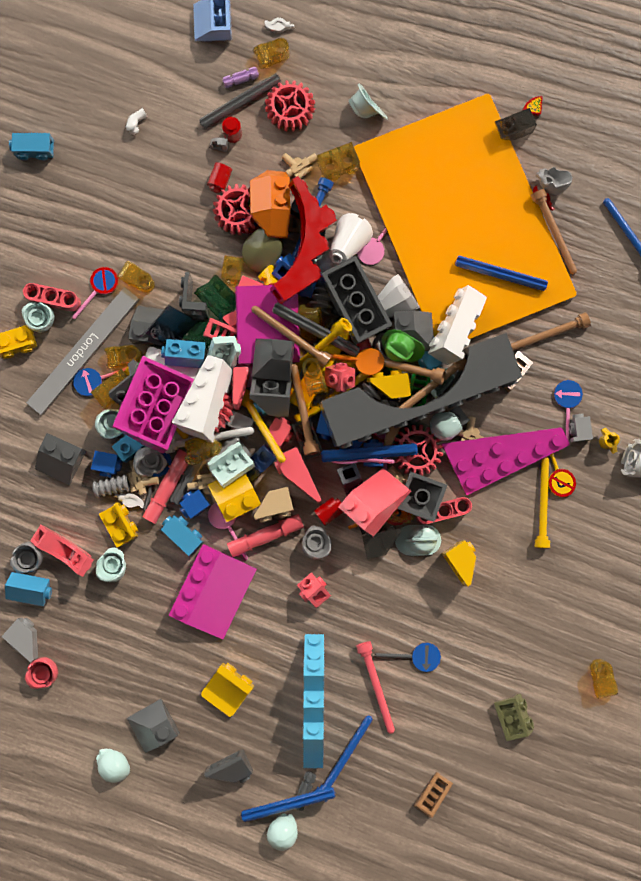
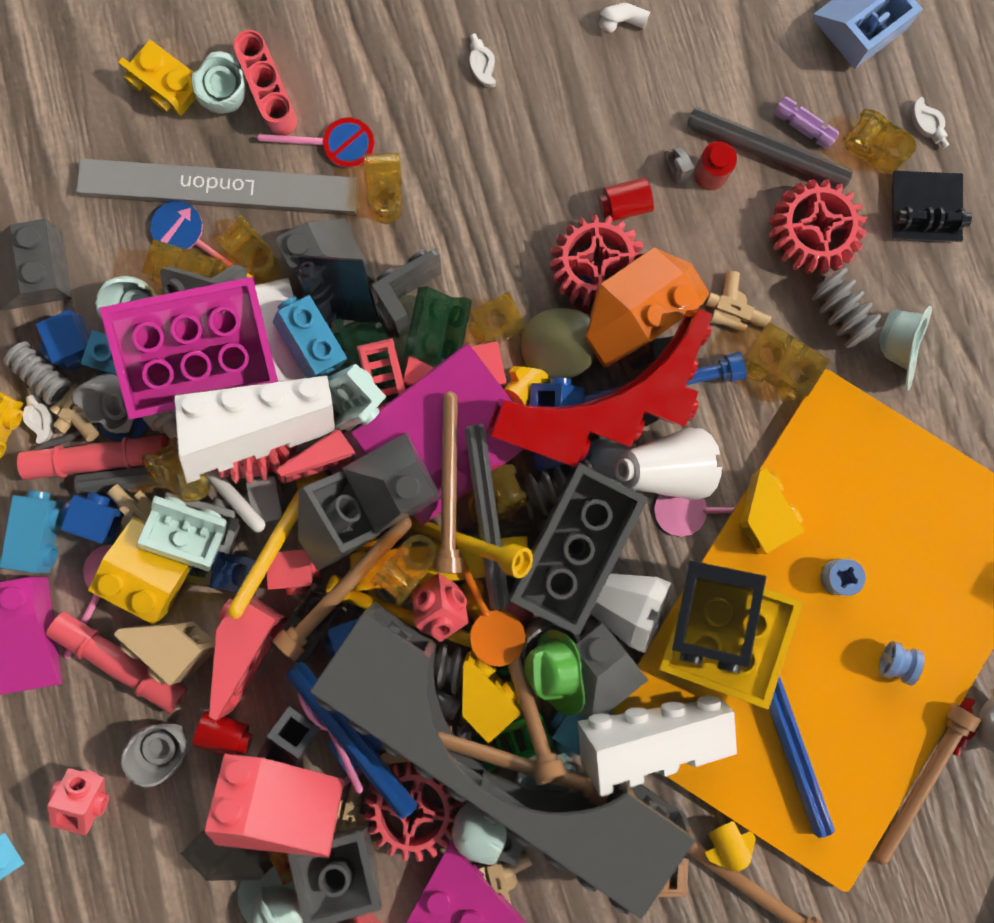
camera: 55 degrees right, 0 degrees up
(110, 197) = (482, 62): none -> white piece
(314, 52) = (928, 206): none -> black hinge
(334, 119) = (846, 308): none -> light grey piece
(397, 214) = (767, 515): none -> yellow slope
(414, 246) = (726, 577): none -> black window
(437, 265) = (720, 623): none -> yellow plate
(446, 206) = (834, 575): none -> medium blue wheel
(498, 204) = (901, 663): none -> medium blue wheel
(525, 329) = (731, 848): none -> yellow piece

